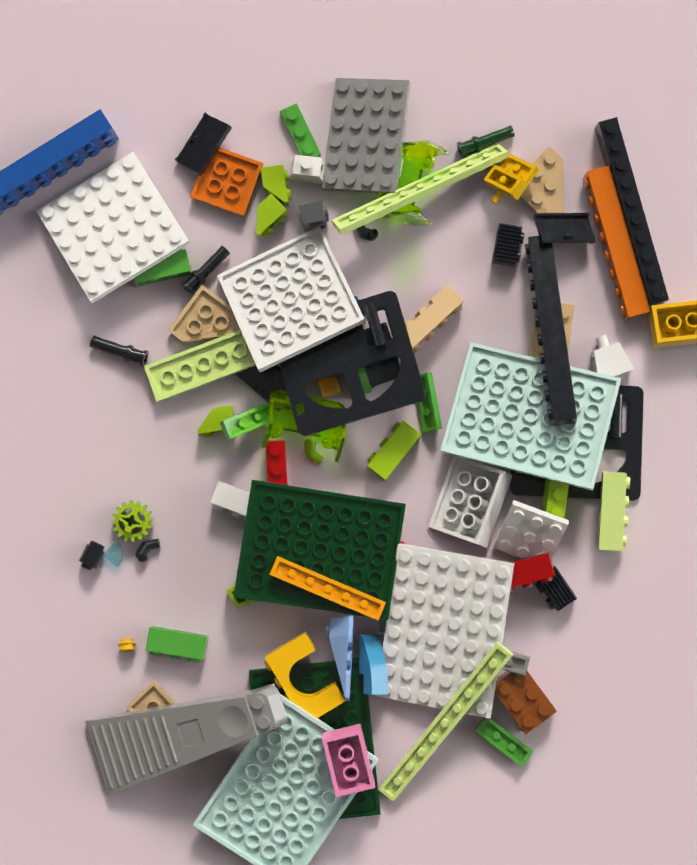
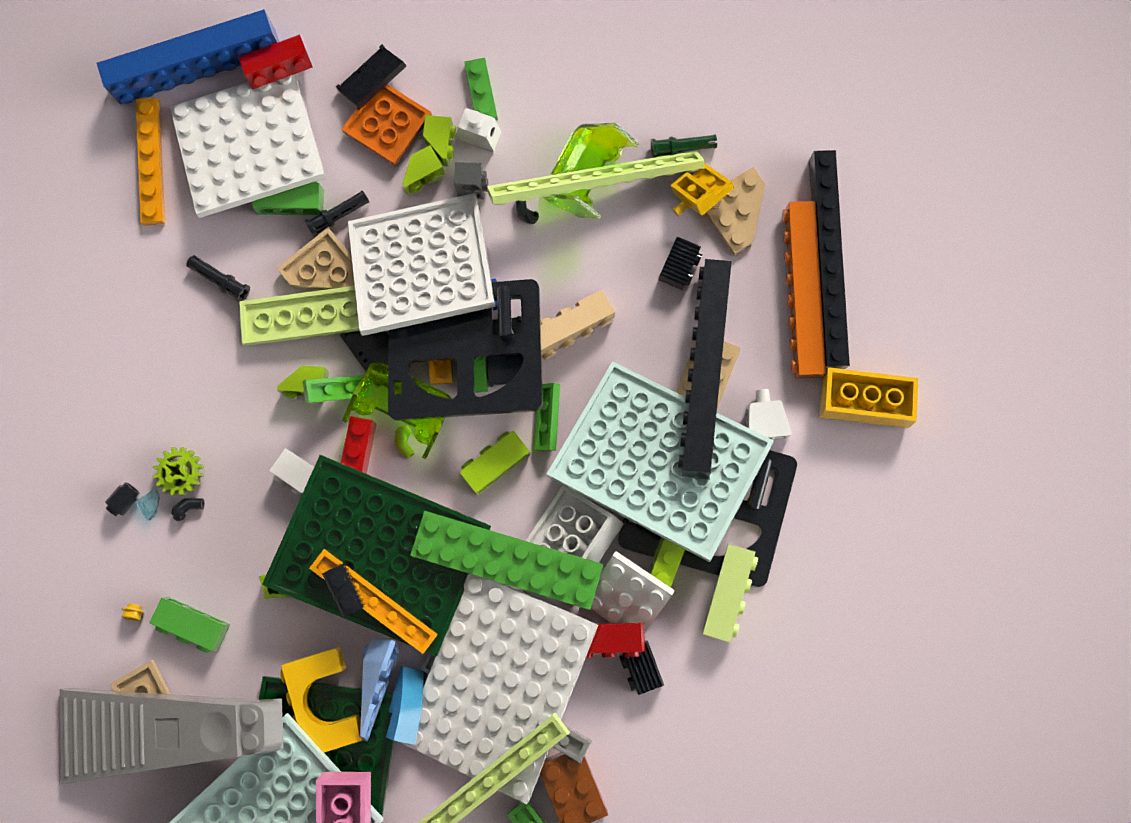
camera: 15 degrees right, 5 degrees down
(32, 262) = (150, 161): none -> light orange plate
(119, 151) = (275, 62): none -> red brick
(304, 584) = (343, 589): none -> black brick
(366, 135) = (552, 108): light grey plate -> none
(427, 528) = (507, 560): none -> bright green plate
(564, 228) = (748, 258): black door -> none

